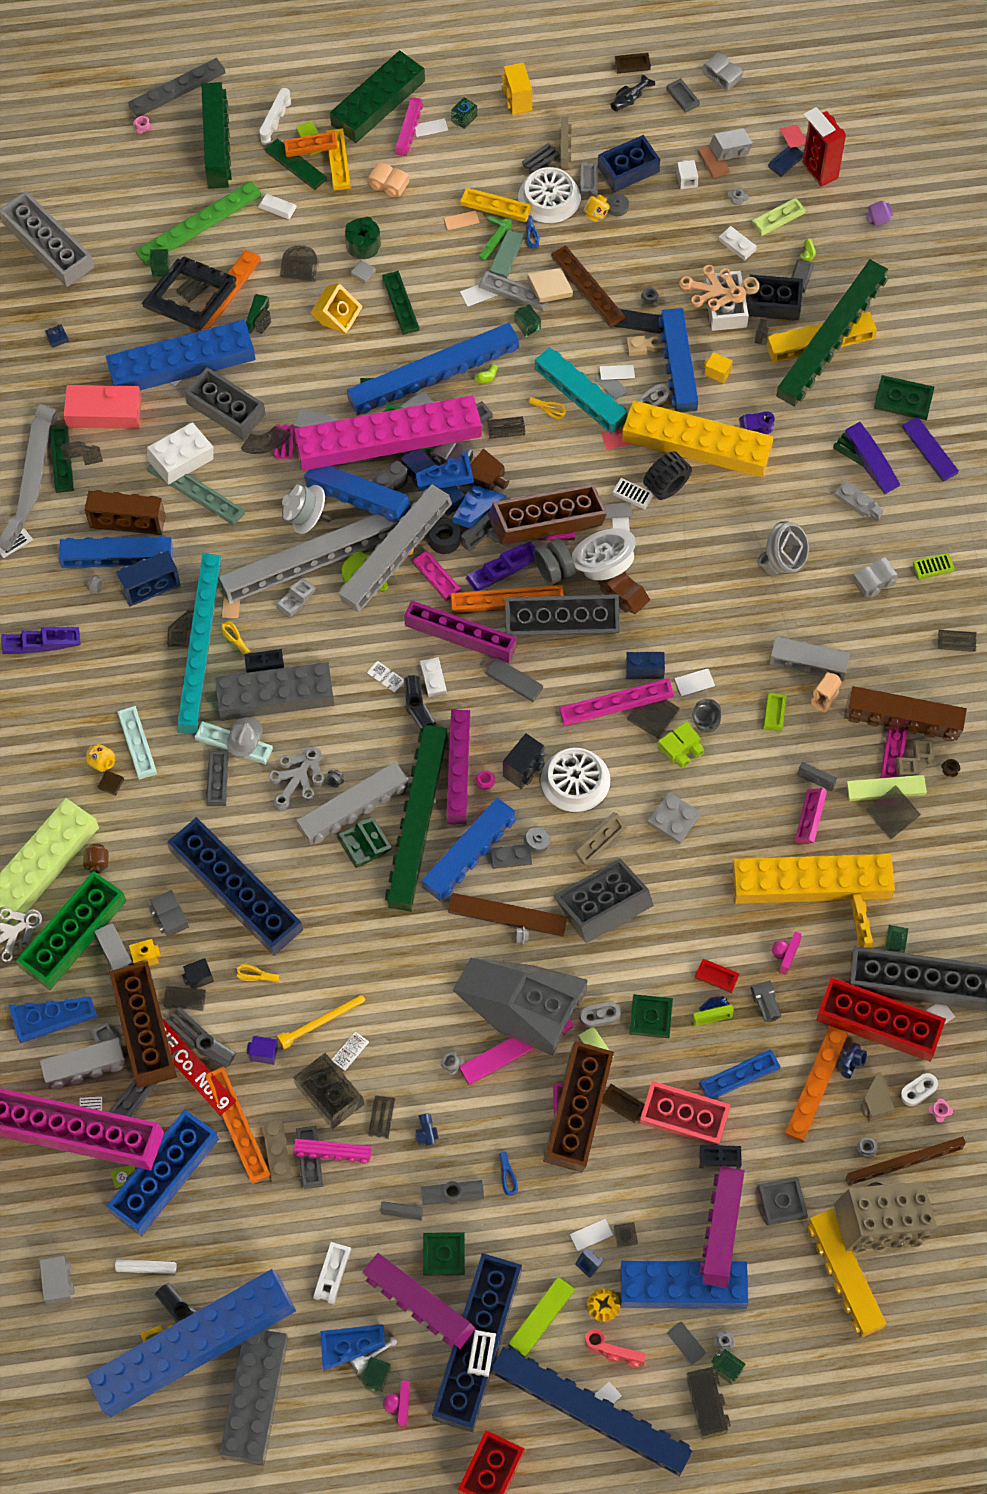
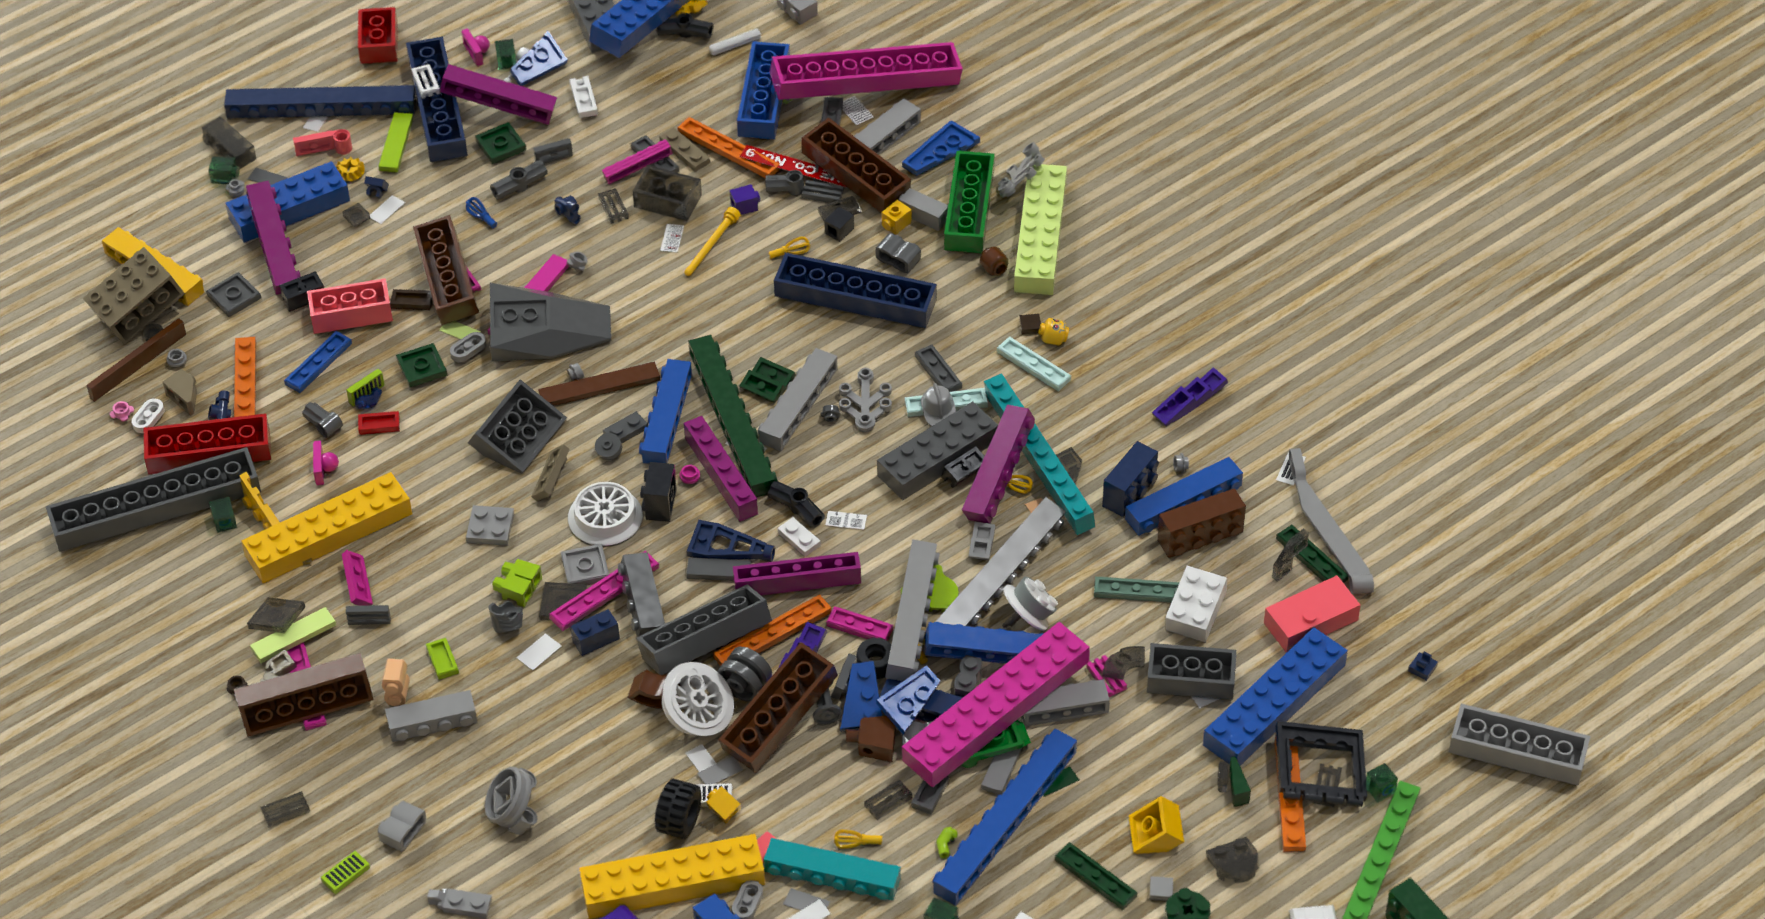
camera: 150 degrees right, 15 degrees down
(103, 1033) = (890, 156): light grey tile -> none
(241, 637) = (998, 464): none -> magenta brick
(510, 710) = (705, 535): none -> dark blue plate
(592, 672) = (641, 593): none -> dark grey brick
(617, 739) = (585, 564): none -> light grey tile
(630, 470) = (722, 804): none -> yellow brick

